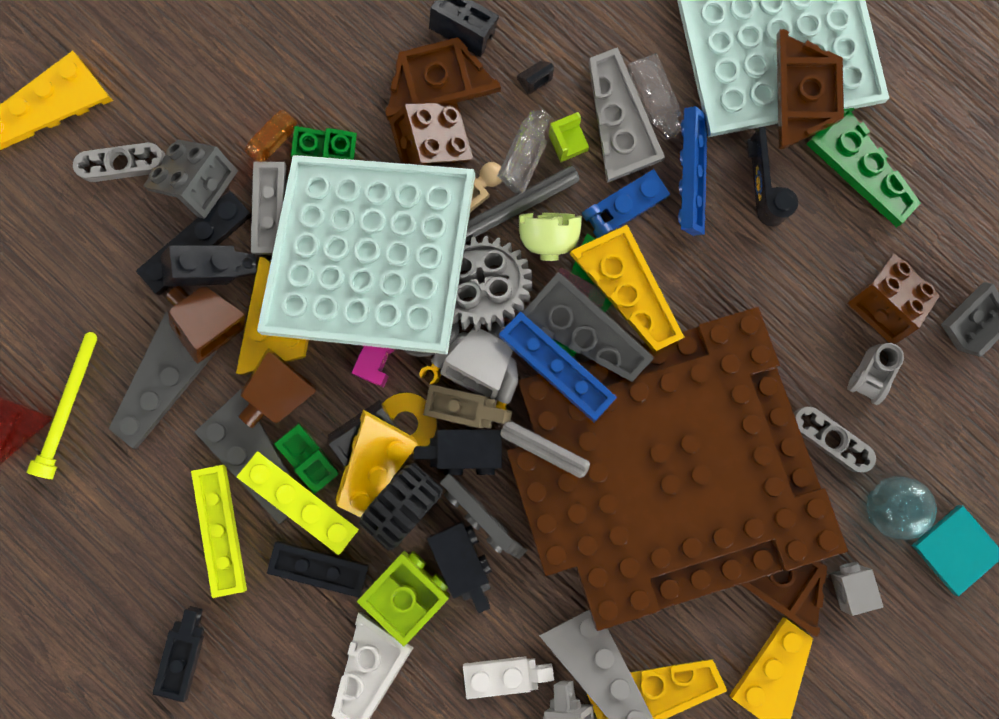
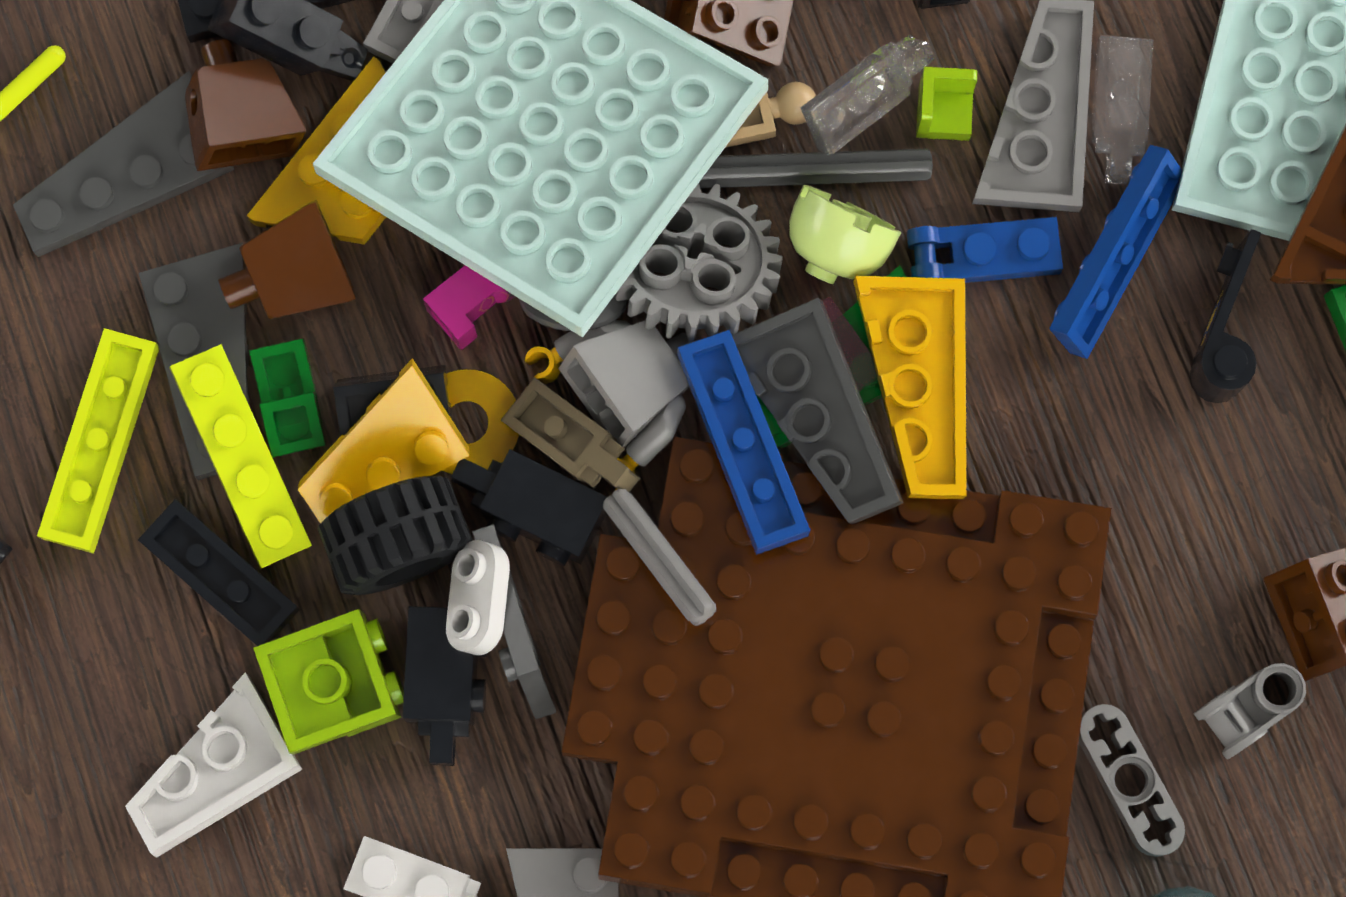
camera: 30 degrees right, 5 degrees down
(461, 518) = (477, 597): none -> white plate

